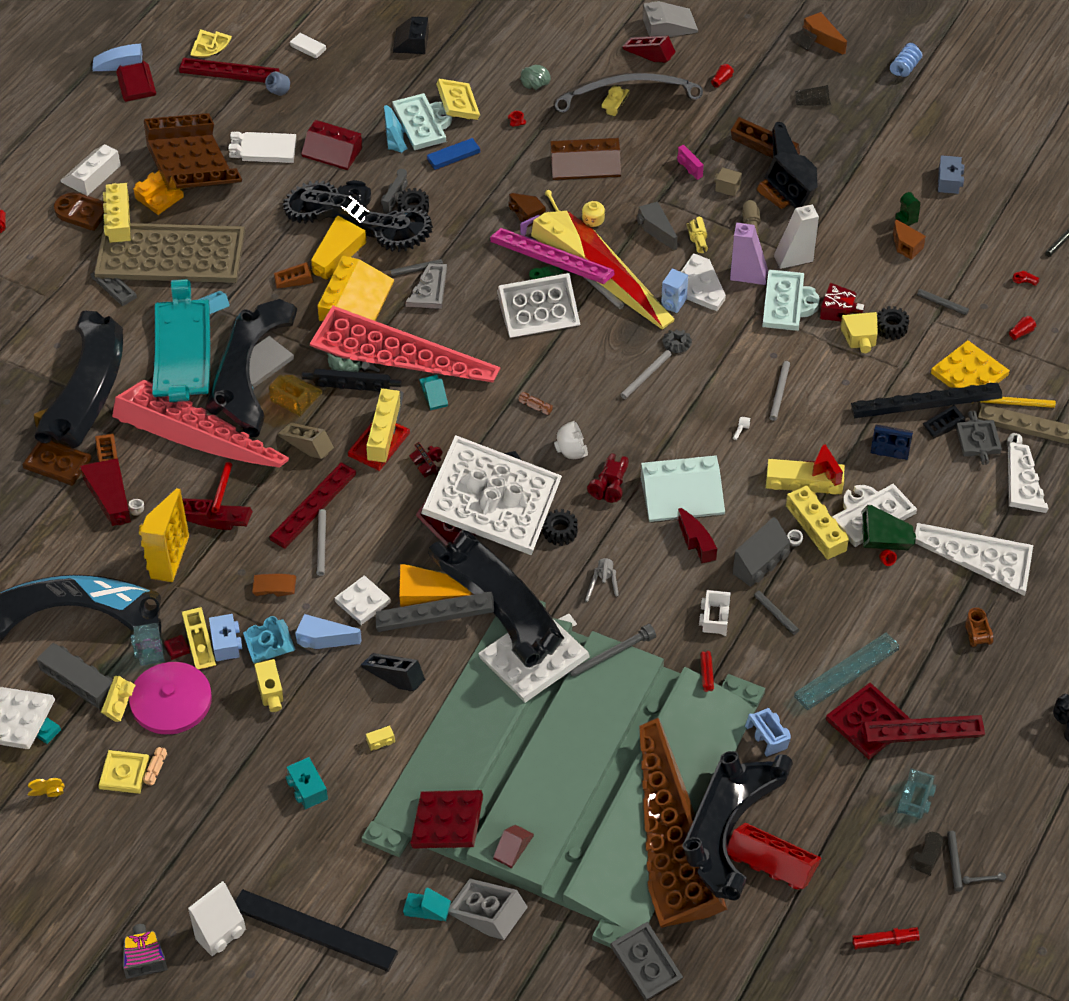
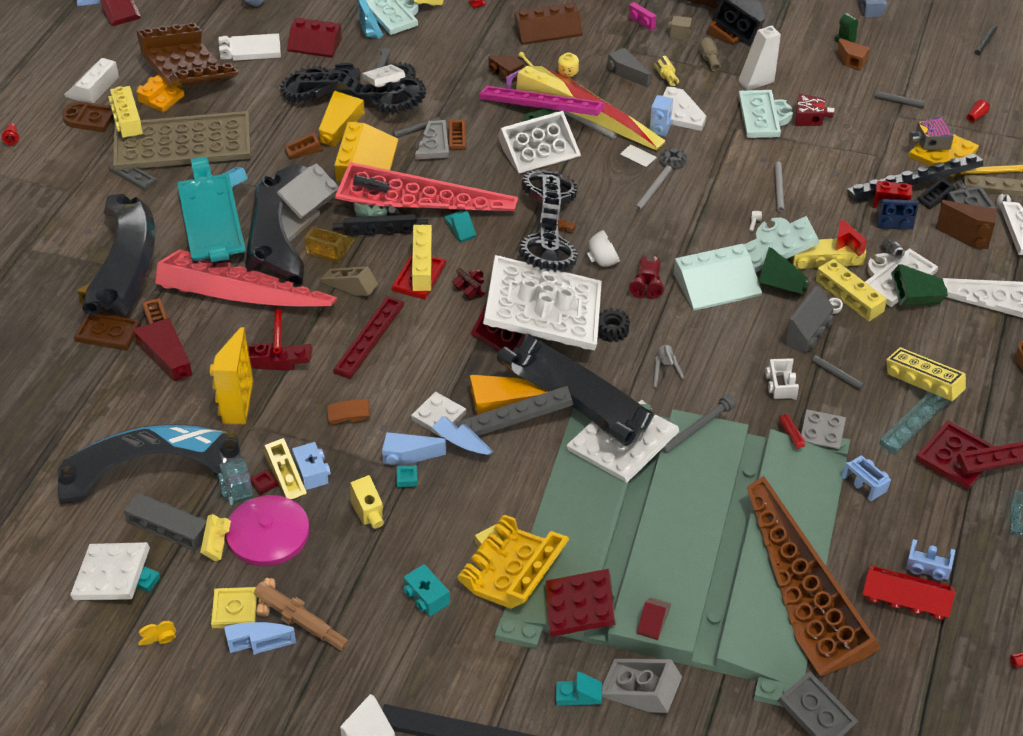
camera: 10 degrees left, 5 degrees down
(136, 507) = (196, 360): white hinge -> none
(139, 804) = (259, 636): none -> light blue slope
(177, 785) = (294, 611): none -> medium nougat piece
(268, 640) = (354, 462): medium azure slope -> none
(284, 333) = (308, 191): none -> light grey slope
(315, 662) = (407, 476): none -> teal plate
(321, 542) = (385, 369): light grey piece -> none
(348, 335) = (371, 184): none -> black pin
(377, 629) = (461, 436): none -> light blue slope
(391, 205) = (383, 75): none -> white plate
(392, 770) = (511, 566): none -> yellow slope
(397, 671) = (491, 473): black slope -> none
(453, 153) = (426, 33): blue tile -> none
(455, 271) = (457, 125): none -> dark orange slope
(517, 420) = (547, 237): none -> black beam
(641, 332) = (638, 155): none -> white sticker
(696, 536) = (743, 316): dark red slope -> none
(726, 799) = (852, 538): black panel -> none
(739, 673) = (823, 429): none -> light grey hinge
(747, 256) = (719, 84): lavender slope -> none
(748, 495) = (782, 275): none -> dark green slope
(755, 458) = (783, 237): none -> light aqua plate
(807, 840) = (929, 563): none -> light blue window
(860, 330) = (836, 129): light yellow torso -> none
(862, 629) = (926, 374): none -> light yellow brick
(875, 481) = (891, 249): none -> dark grey pin
(892, 557) = (925, 311): red hinge -> none
(894, 416) = (892, 191): none -> red bracket
(895, 316) = (862, 120): black tyre -> none
(959, 352) = (932, 134): none -> dark grey torso
(962, 463) = (967, 223): none -> reddish brown slope
(1023, 277) = (962, 72): red arm -> none

